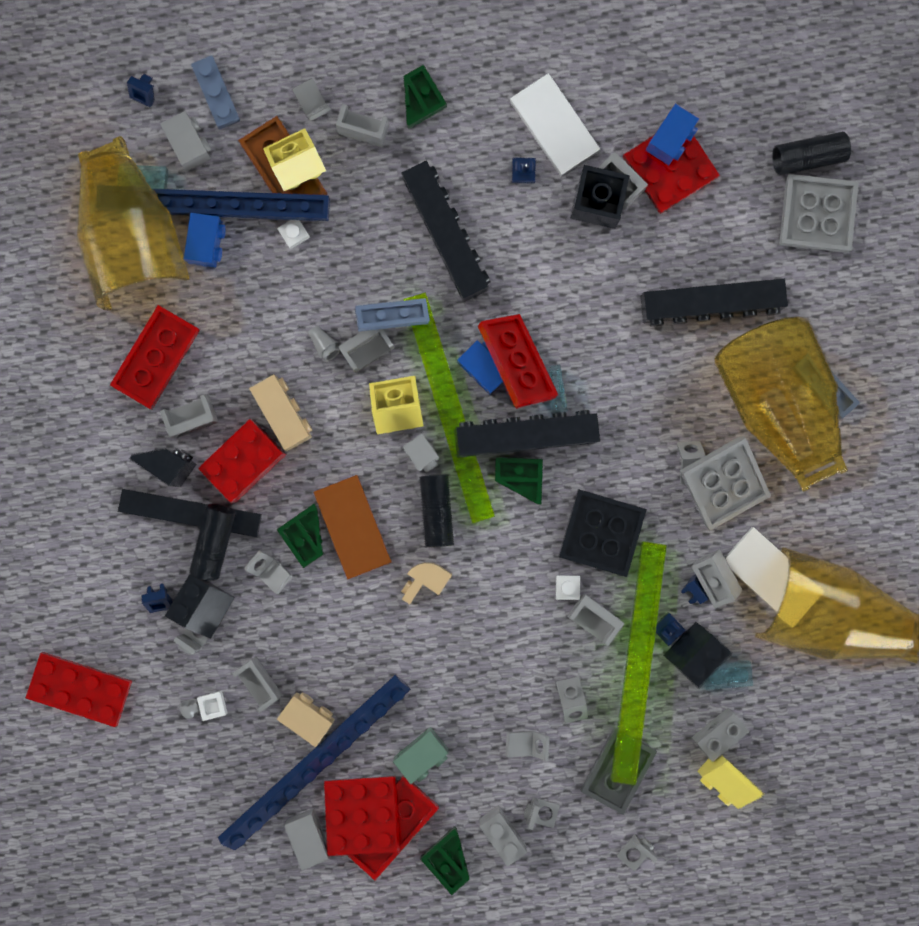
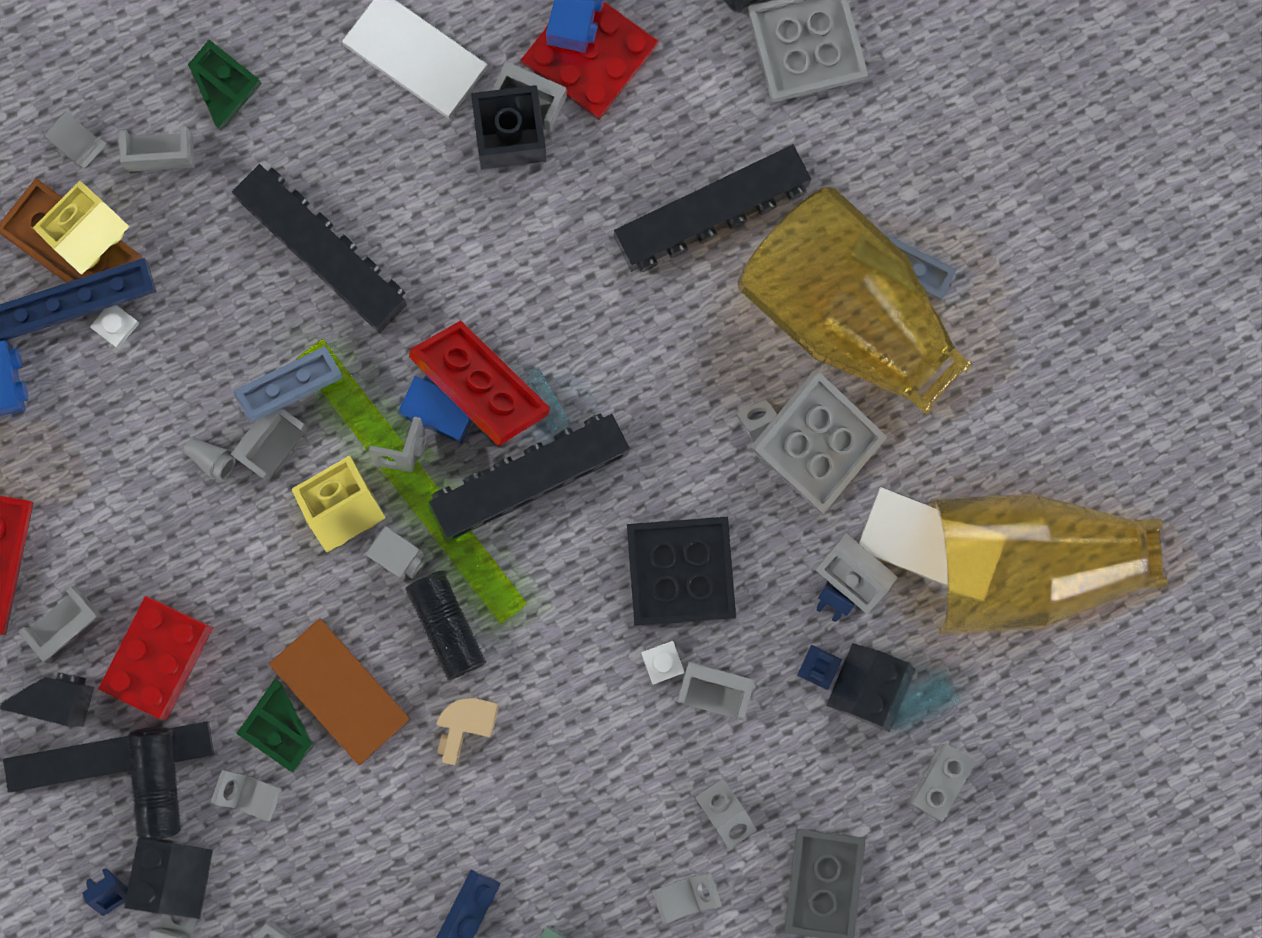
camera: 25 degrees left, 5 degrees down
(281, 412) = (185, 571): tan brick -> none
(451, 393) = (407, 459): none -> light grey bracket
(521, 476) = (543, 536): dark green wing -> none
(523, 170) = (395, 129): dark blue tile -> none
(638, 663) = (794, 728): clear neon green plate -> none
(728, 781) = (977, 841): light yellow slope -> none

